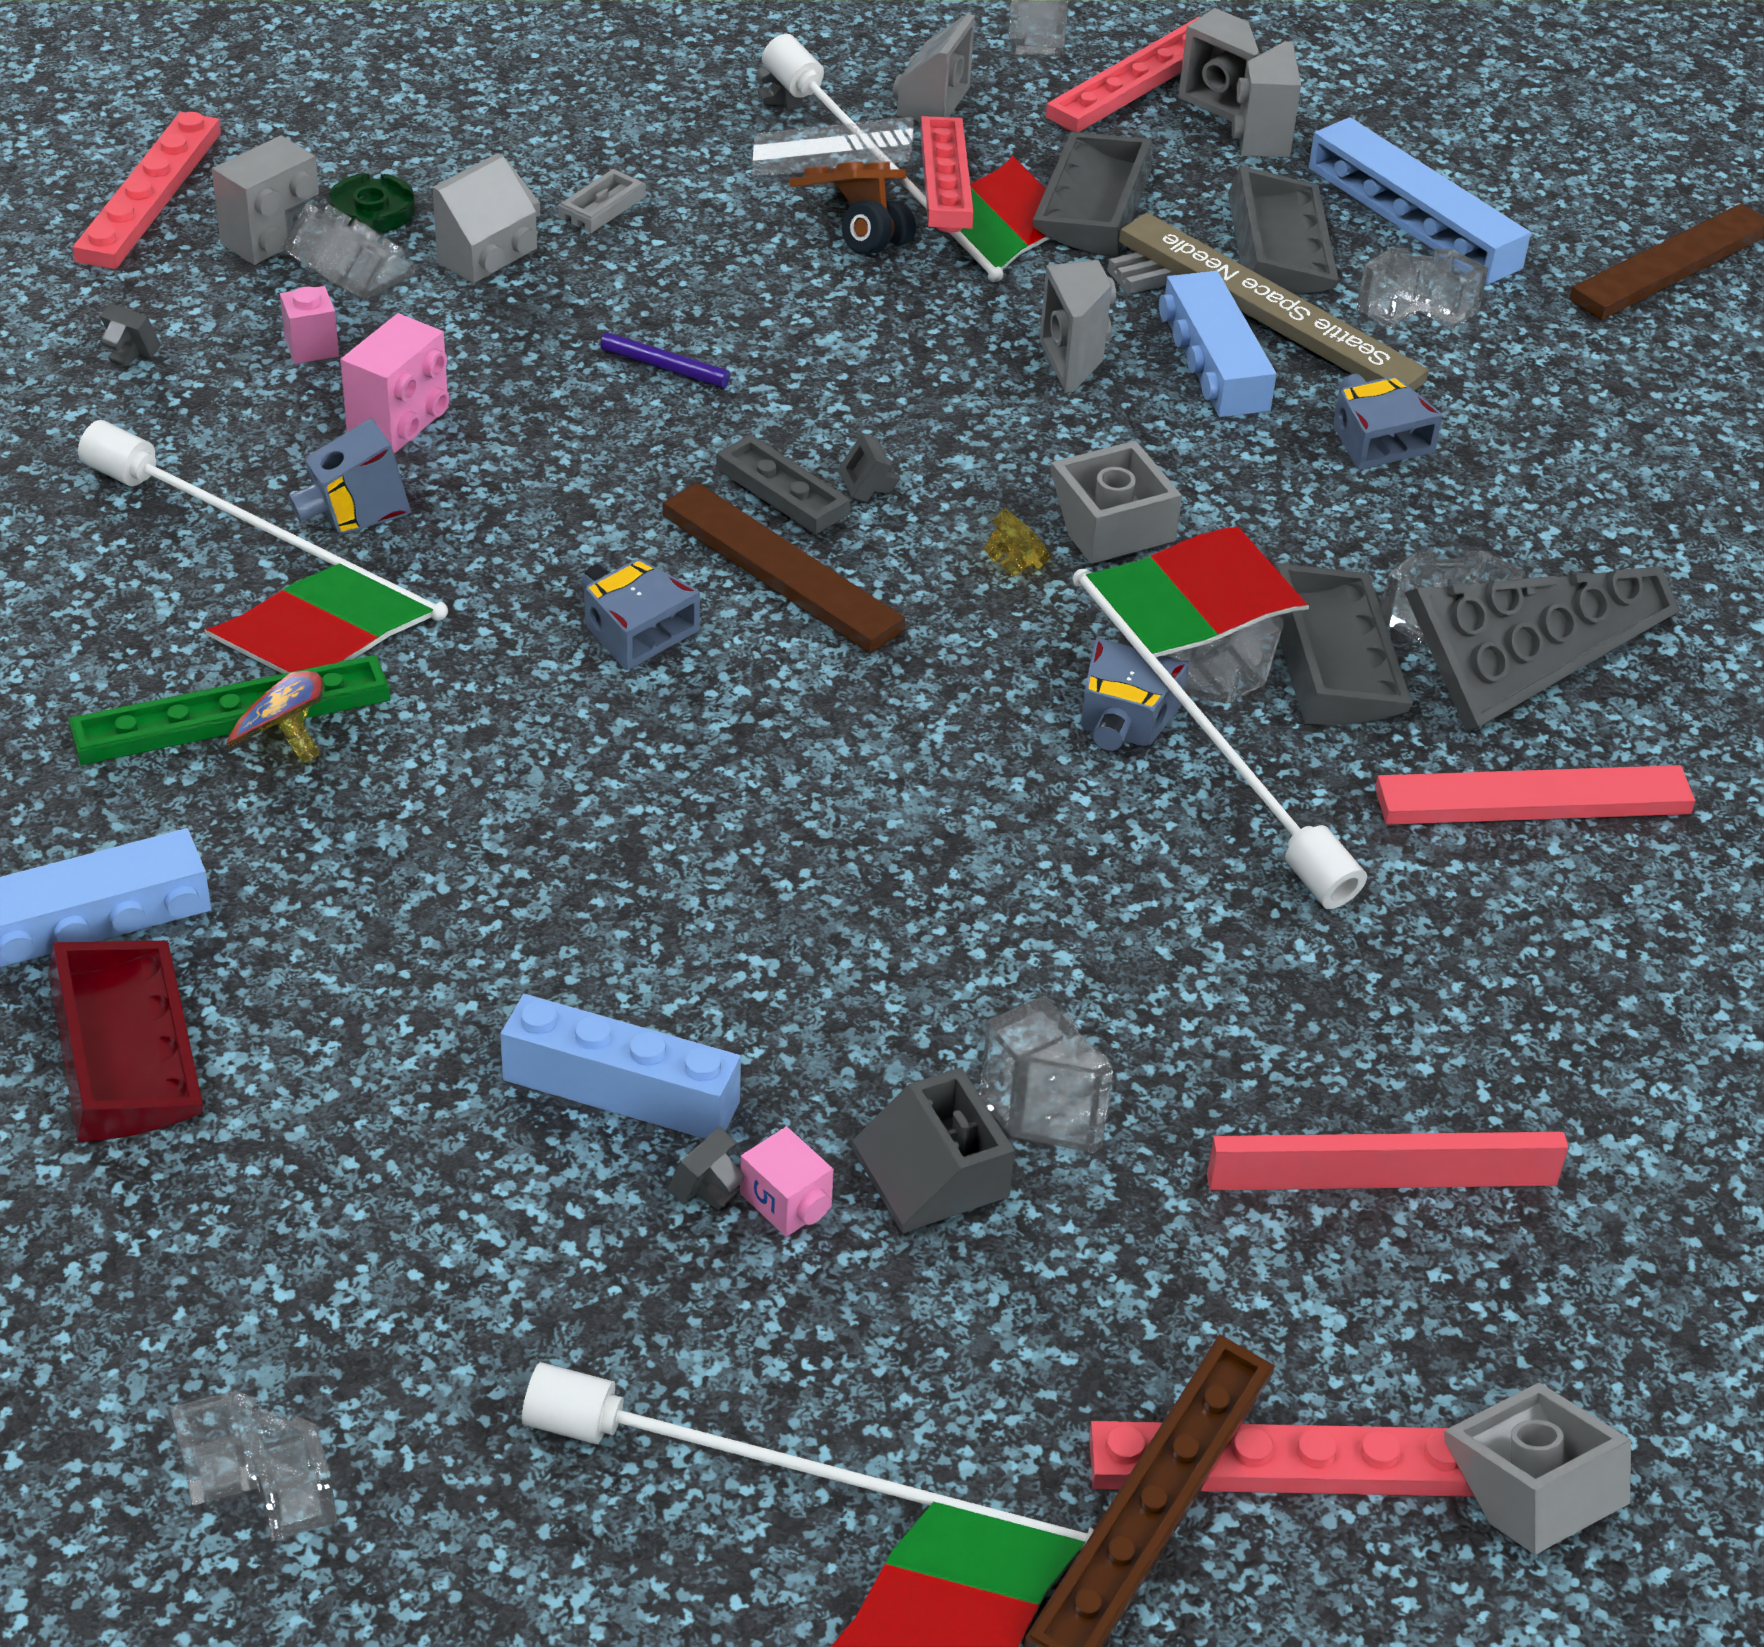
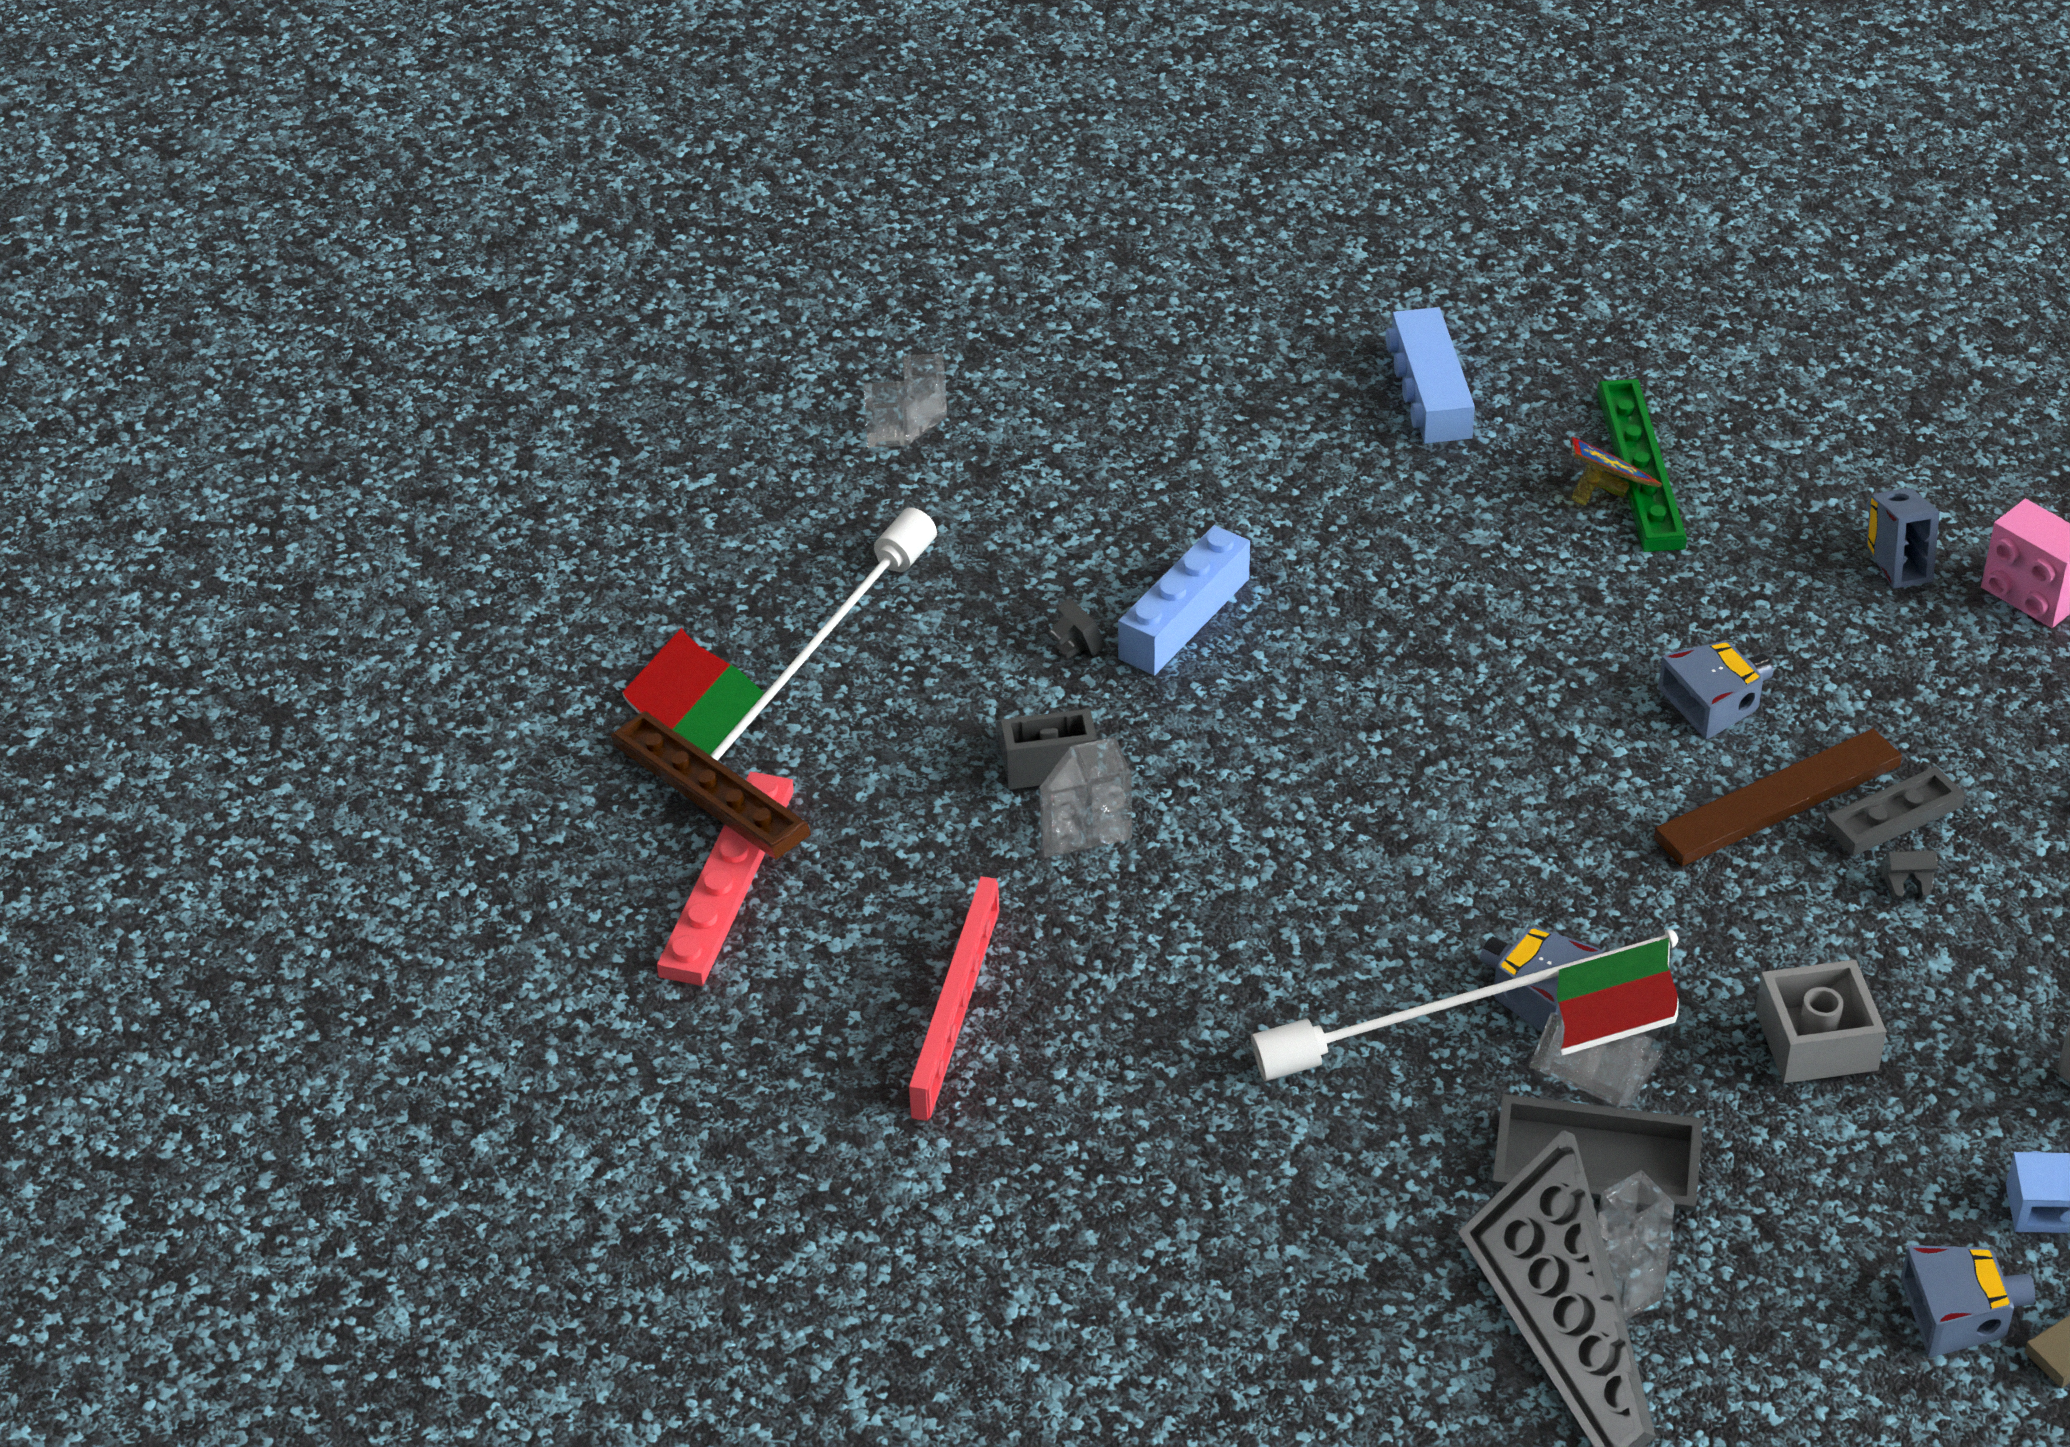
camera: 110 degrees right, 0 degrees up
(122, 1038) = (1298, 381): dark red slope -> none
(310, 621) = (1760, 529): flag -> none
(787, 1181) = (1052, 667): bright pink brick -> none
(1017, 539) = (1781, 948): clear yellow tile -> none
(1534, 794) = (1356, 1252): coral tile -> none
(1542, 1466) = (644, 986): light grey slope -> none

